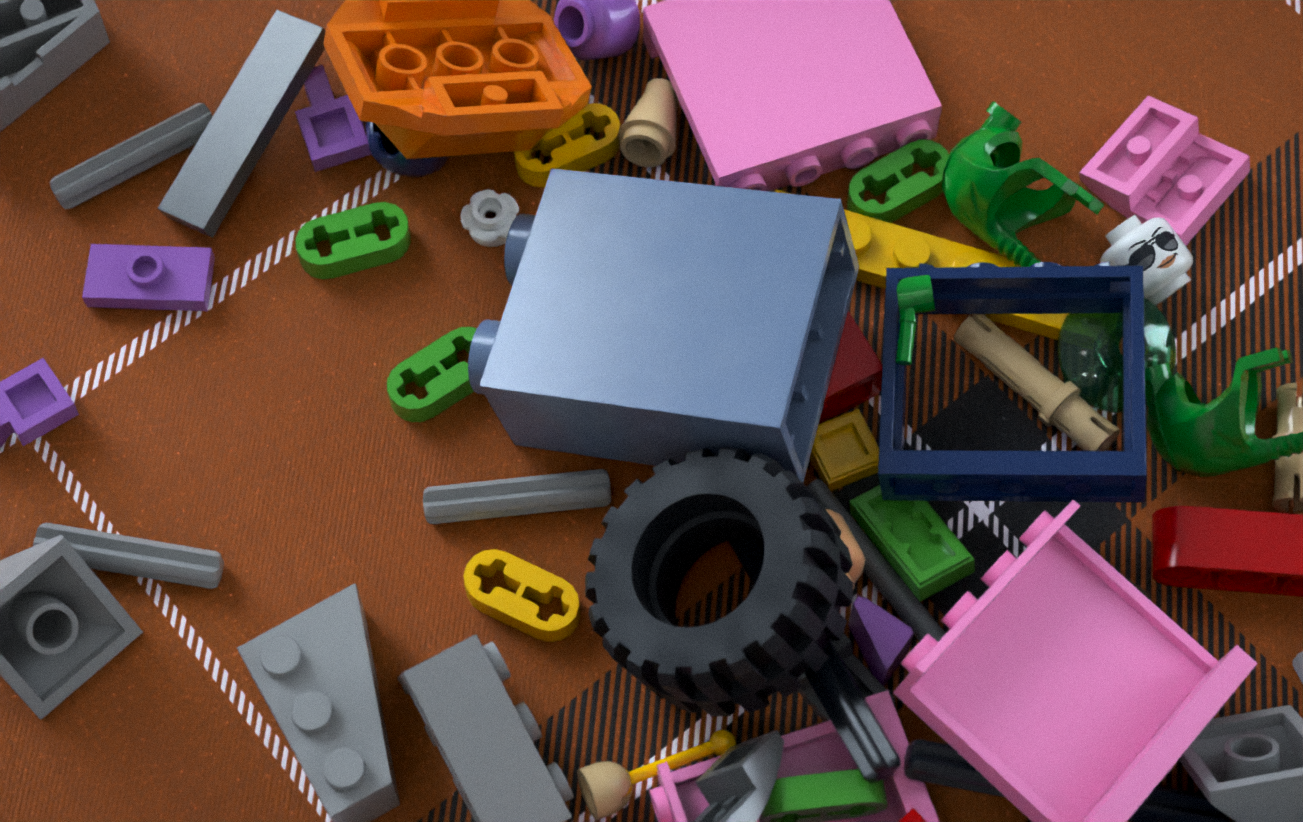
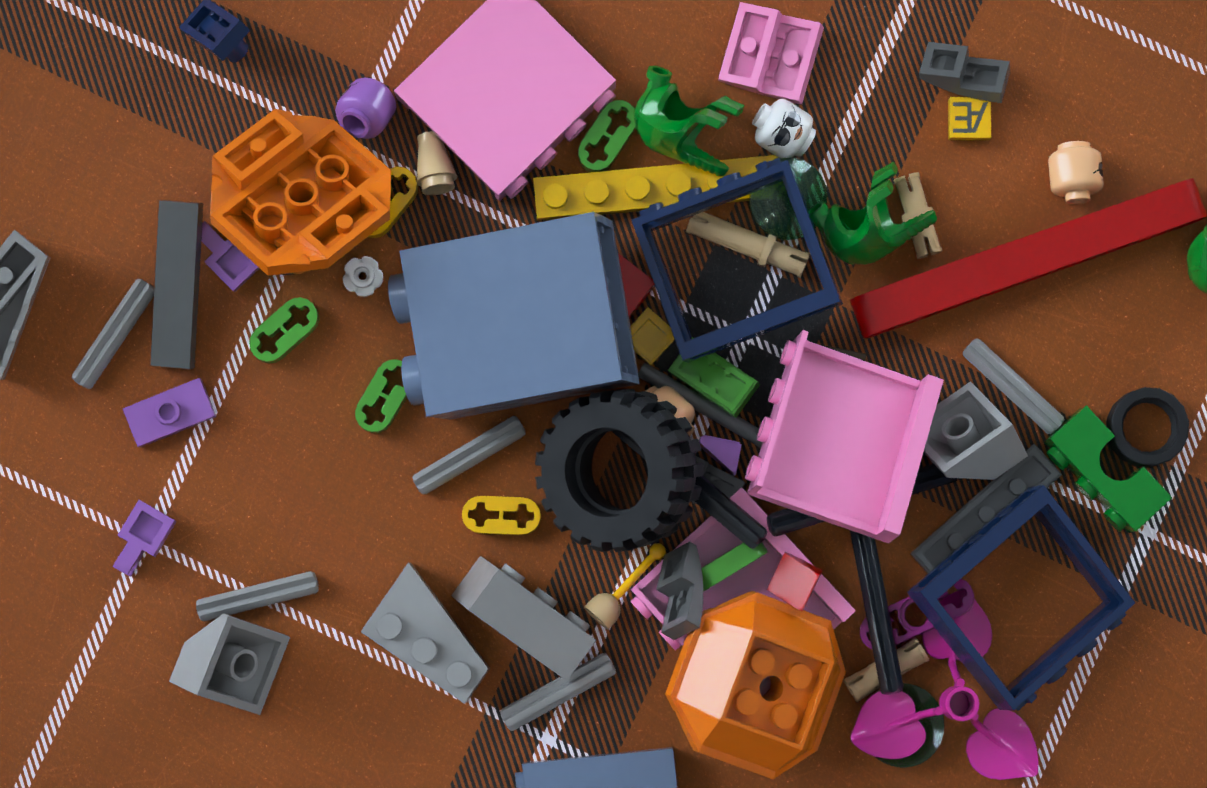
camera: 25 degrees left, 20 degrees up
(914, 297) = (656, 238): green hand -> none

